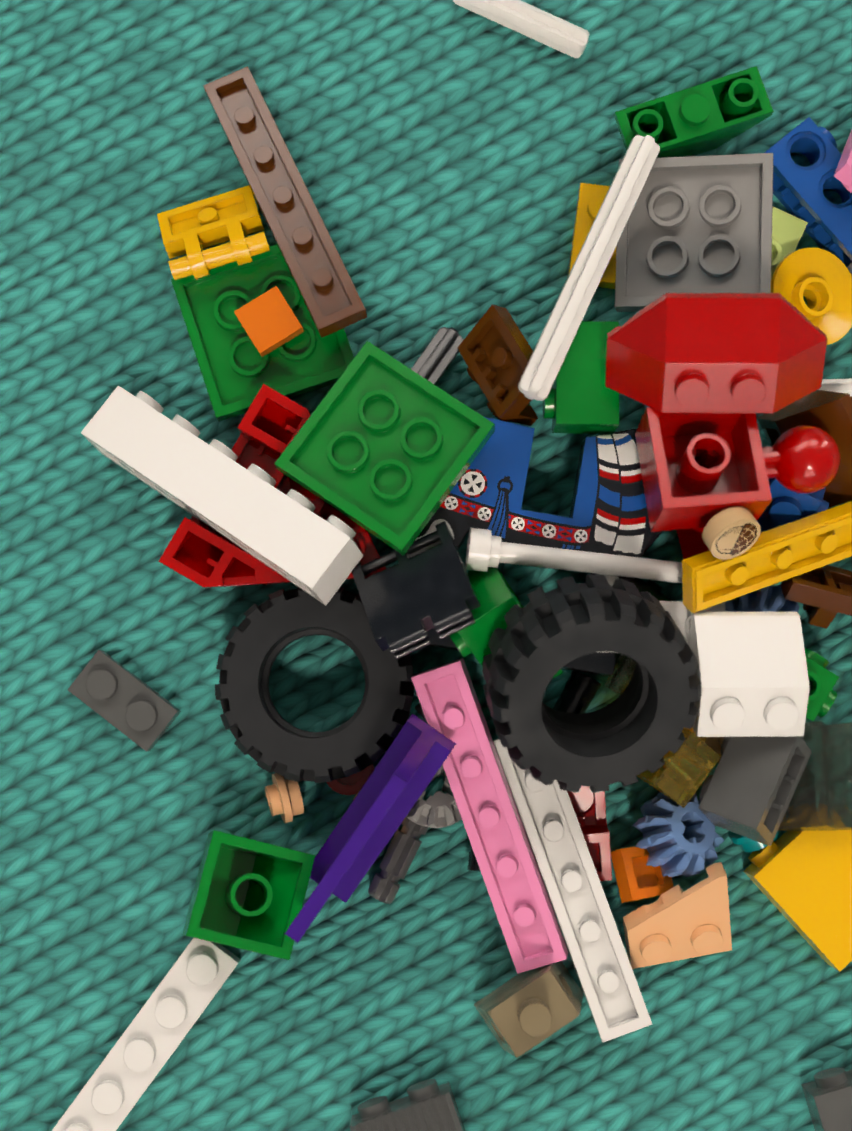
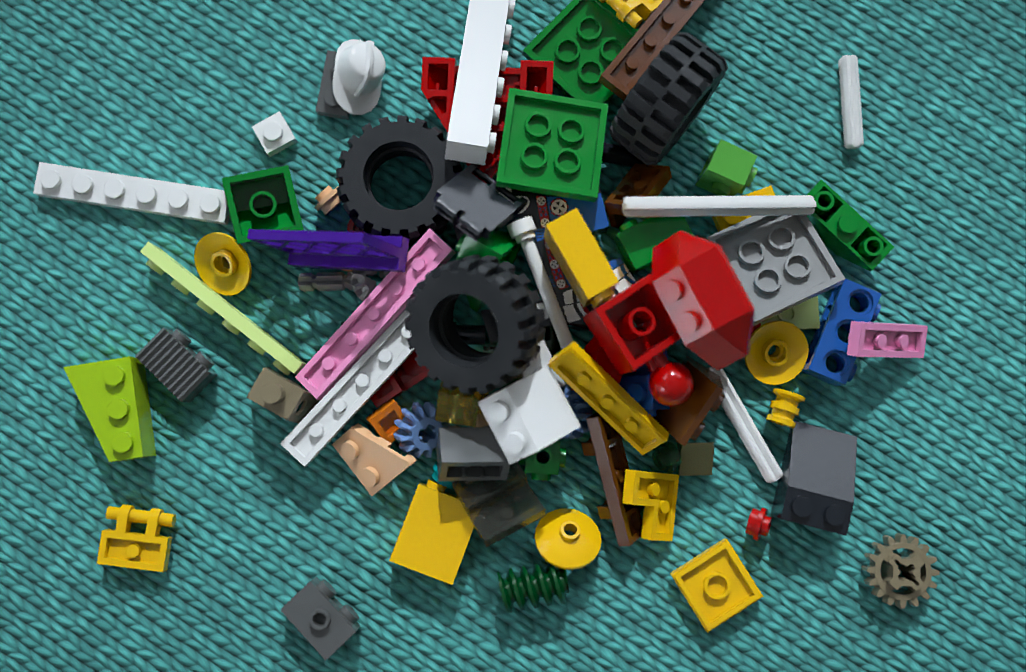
camera: 55 degrees right, 0 degrees up
(129, 665) = (358, 76): none -> white piece
(147, 826) = (274, 134): none -> white plate
(269, 321) = (592, 49): orange tile -> none
(299, 995) = (222, 263): none -> yellow dish
(346, 1036) = (212, 302): none -> yellowish green plate
(406, 254) = (667, 98): none -> black tyre
(536, 230) = (727, 170): none -> bright green brick
(575, 491) = (581, 259): none -> yellow brick
(731, 532) = (603, 358): tan tile -> none

